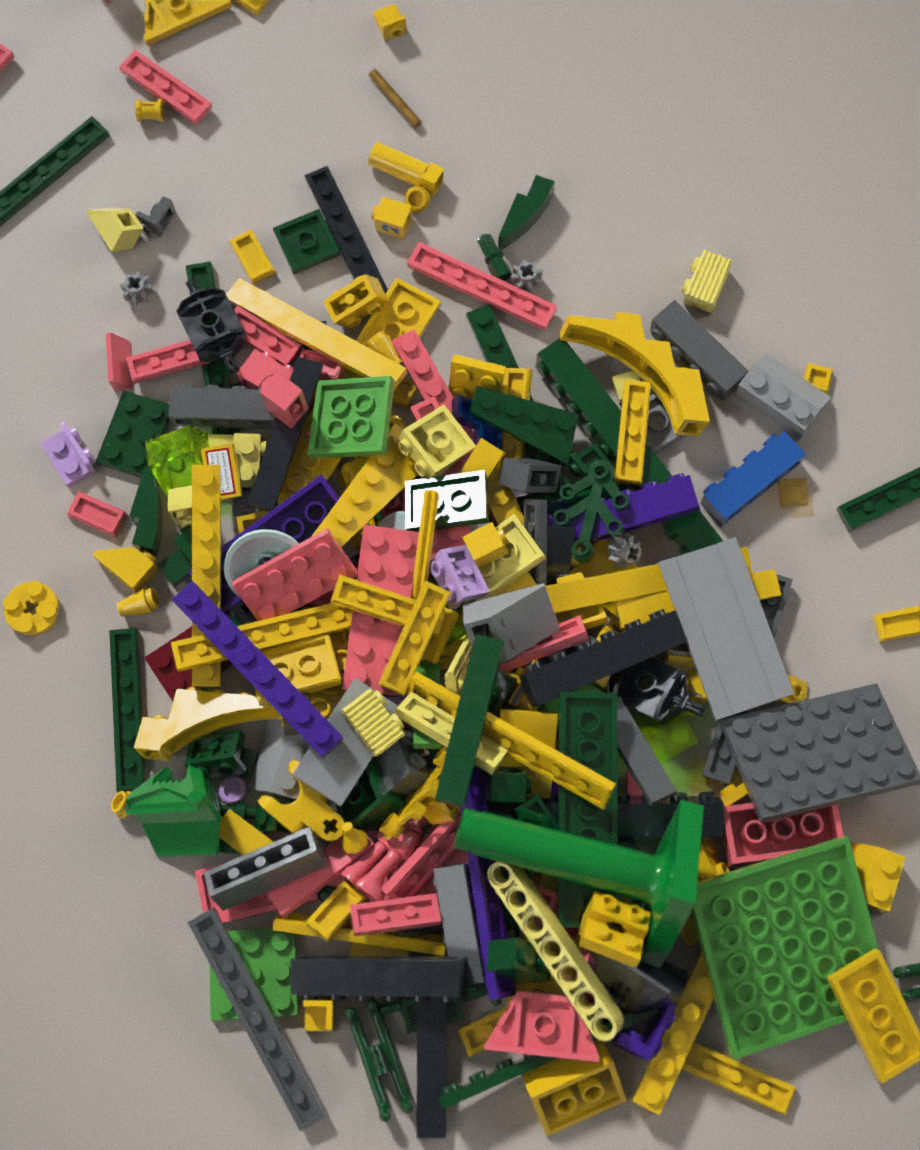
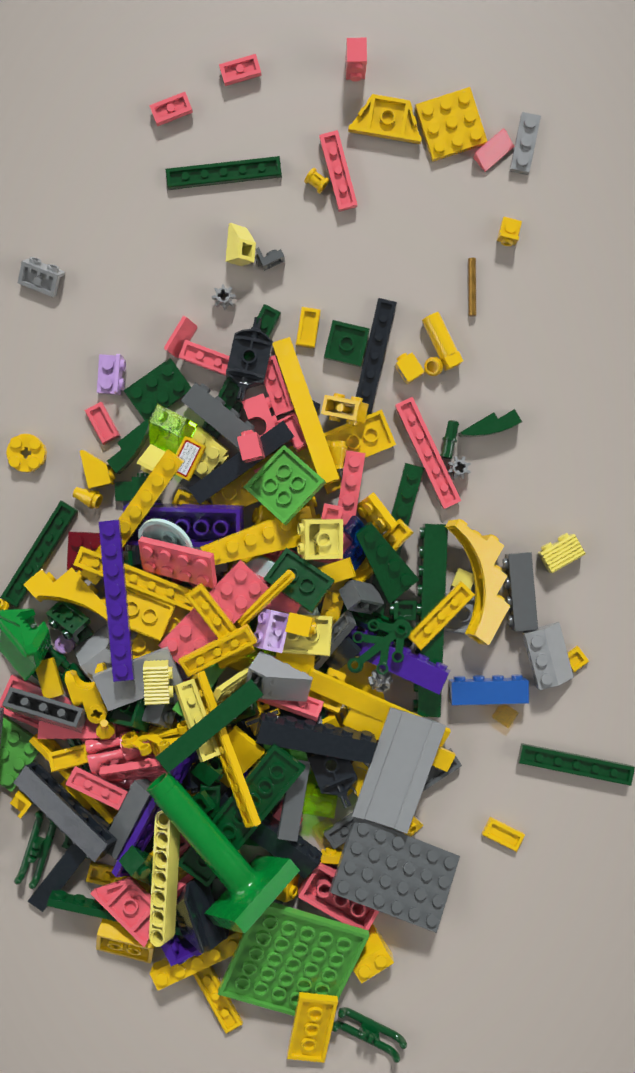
camera: 30 degrees right, 15 degrees up
(614, 928) = (200, 895): yellow brick -> none

